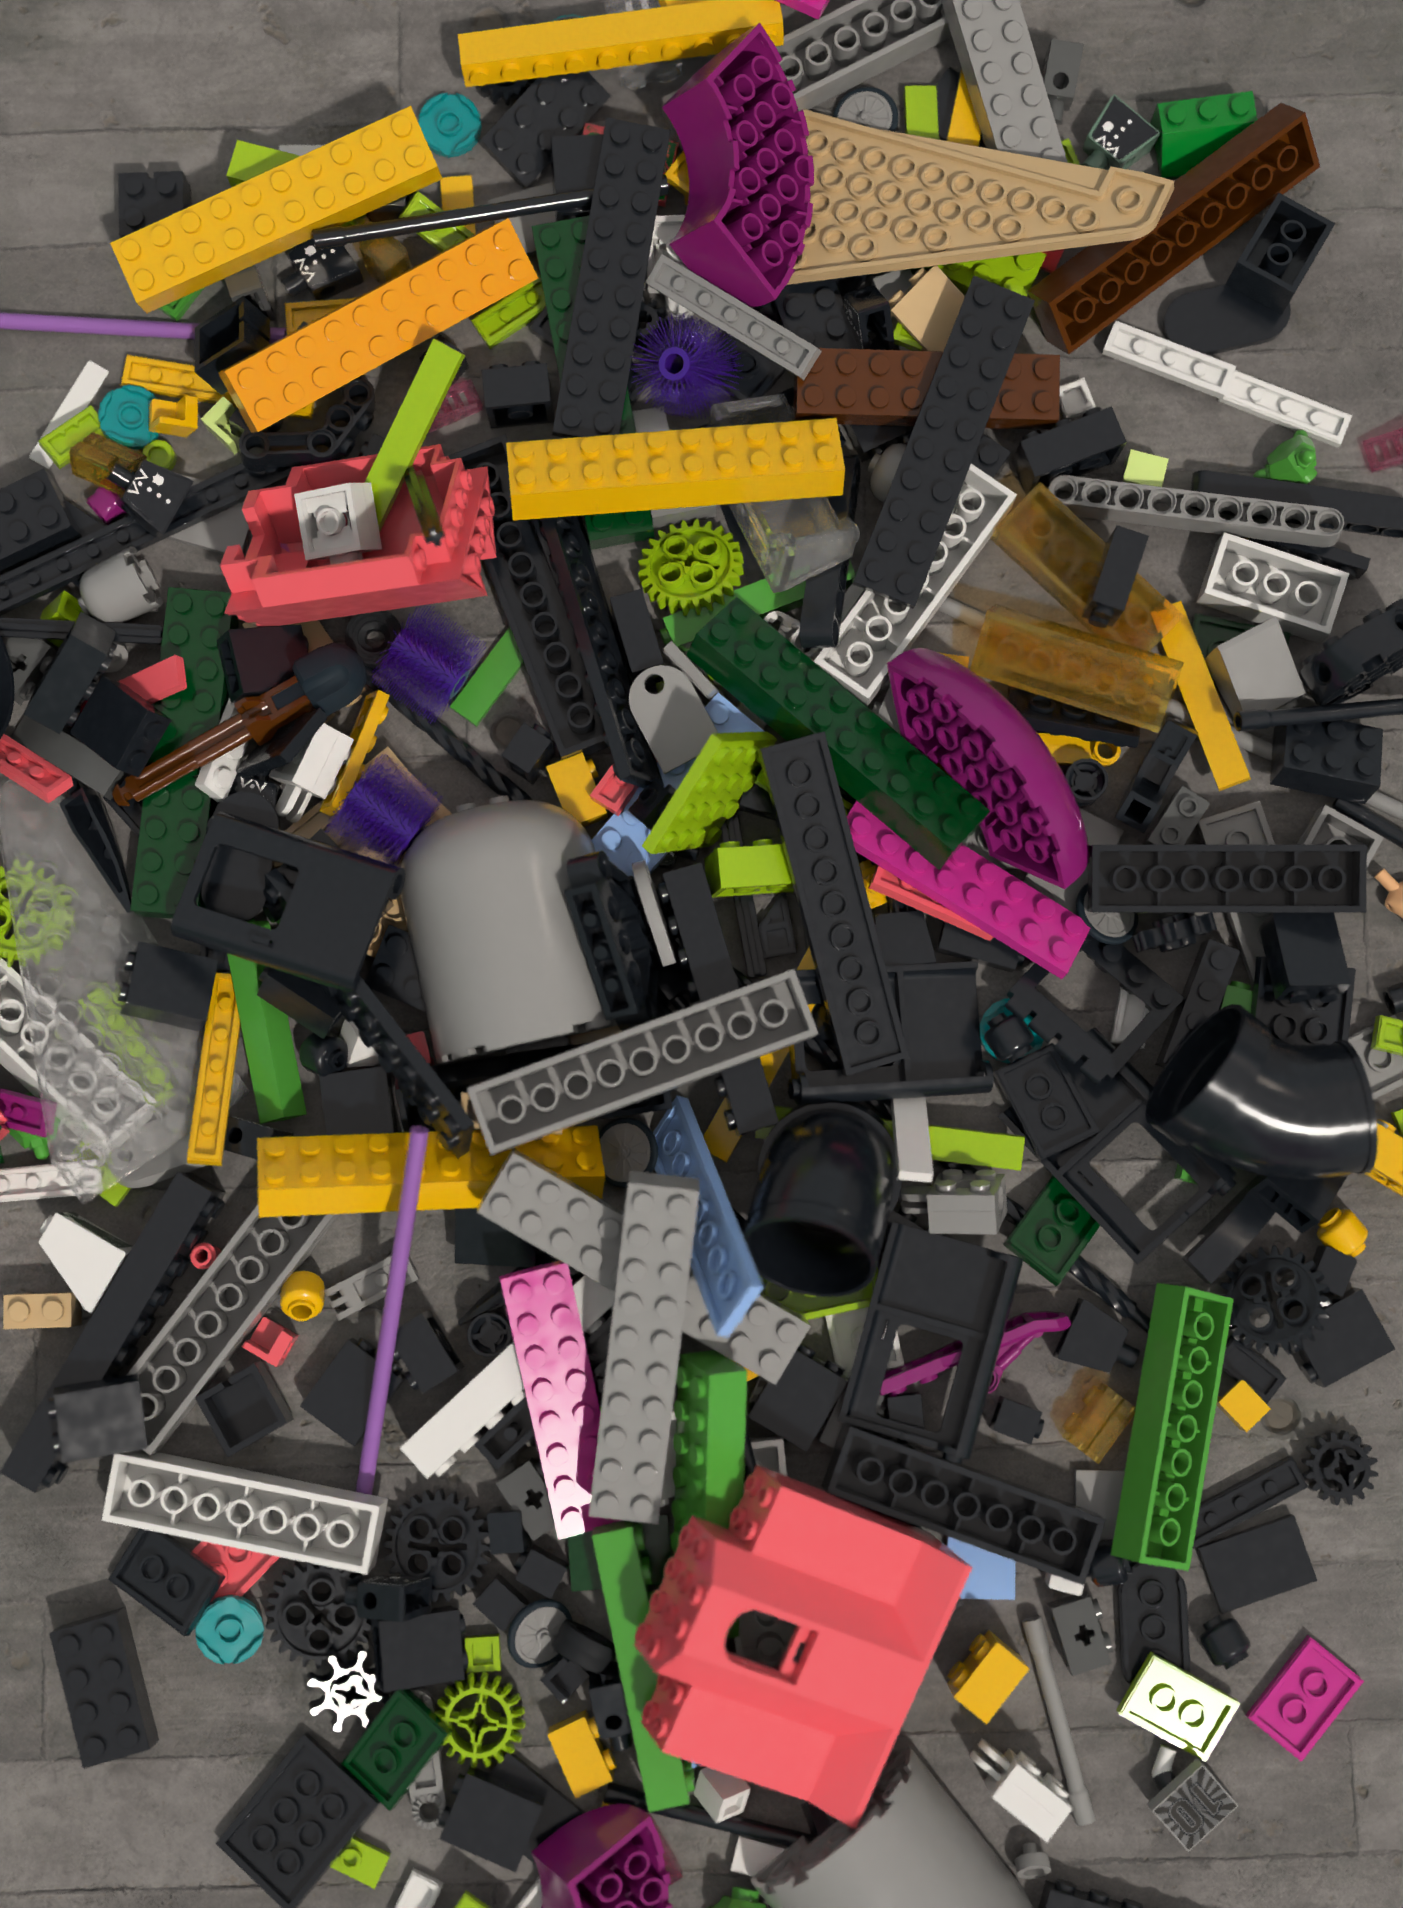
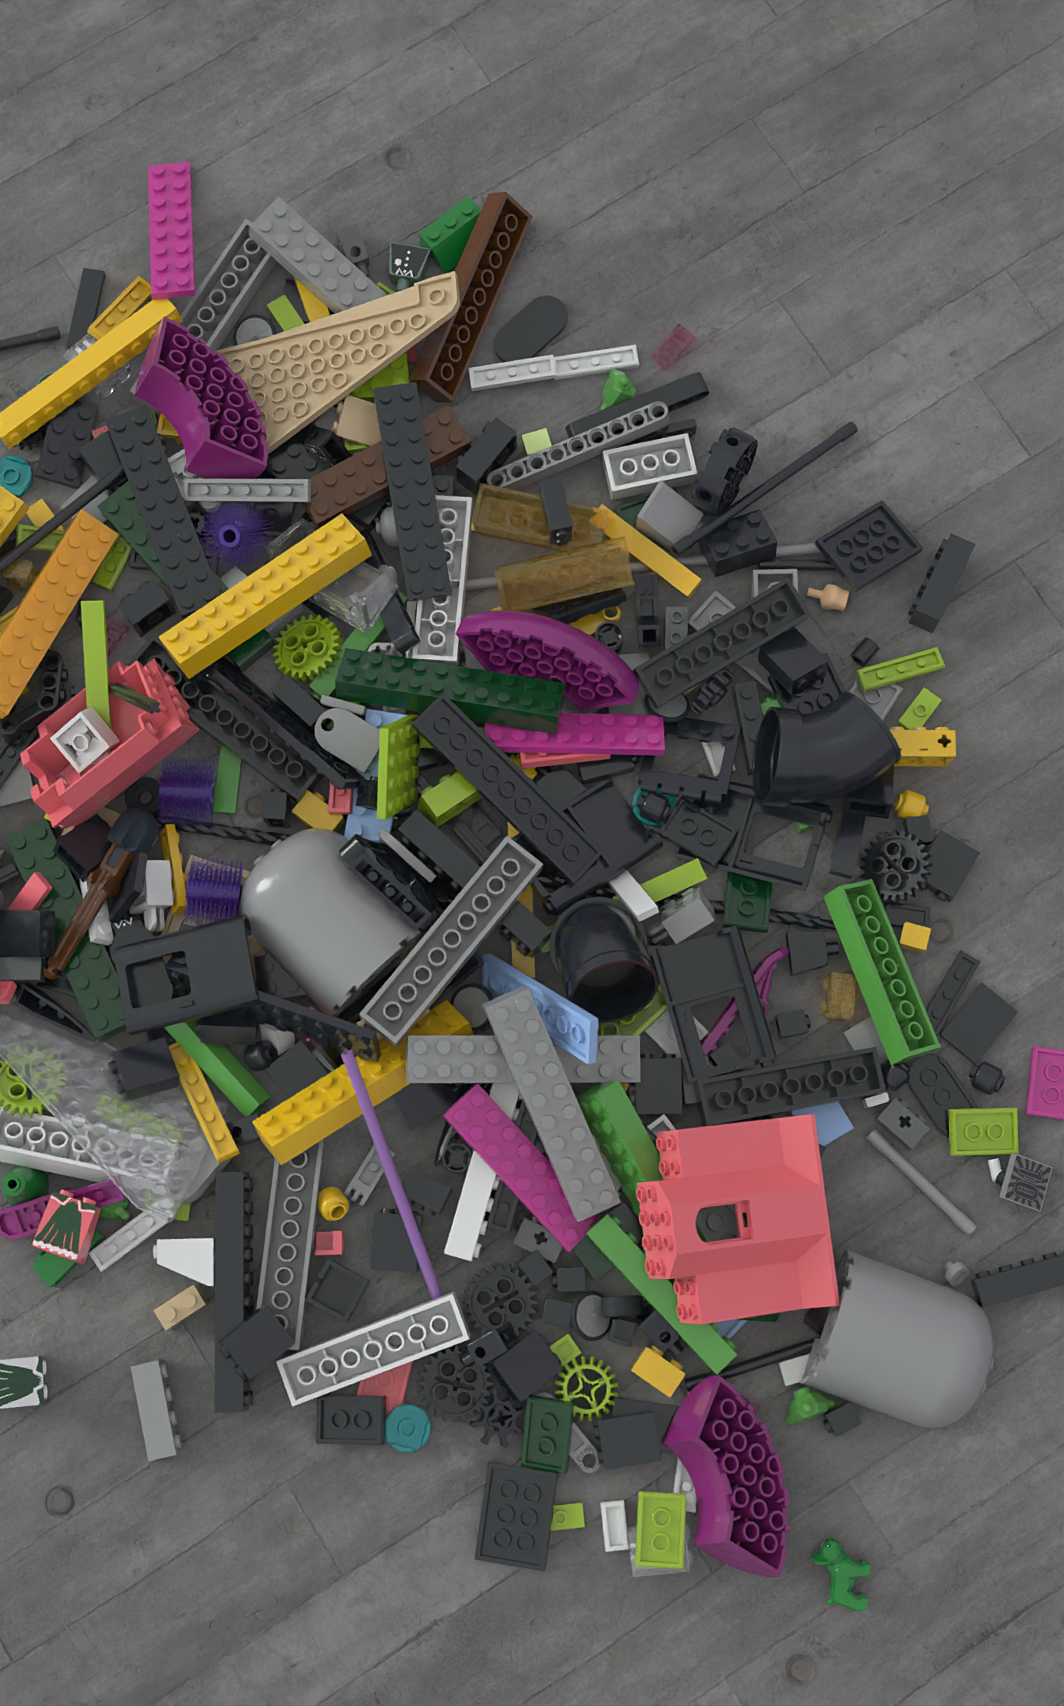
camera: 30 degrees left, 5 degrees down
(104, 1687) = (352, 1507): black brick -> none
(199, 1253) = (256, 1219): coral pin -> none
(721, 1794) = (752, 1342): white panel -> none
(986, 1676) = (863, 1179): yellow brick -> none
(1023, 1791) = (924, 1232): white brick -> none
(1075, 399) = (472, 425): white tile -> none
(1280, 253) = (539, 277): black brick -> none
(1325, 1470) = (997, 944): black gear -> none

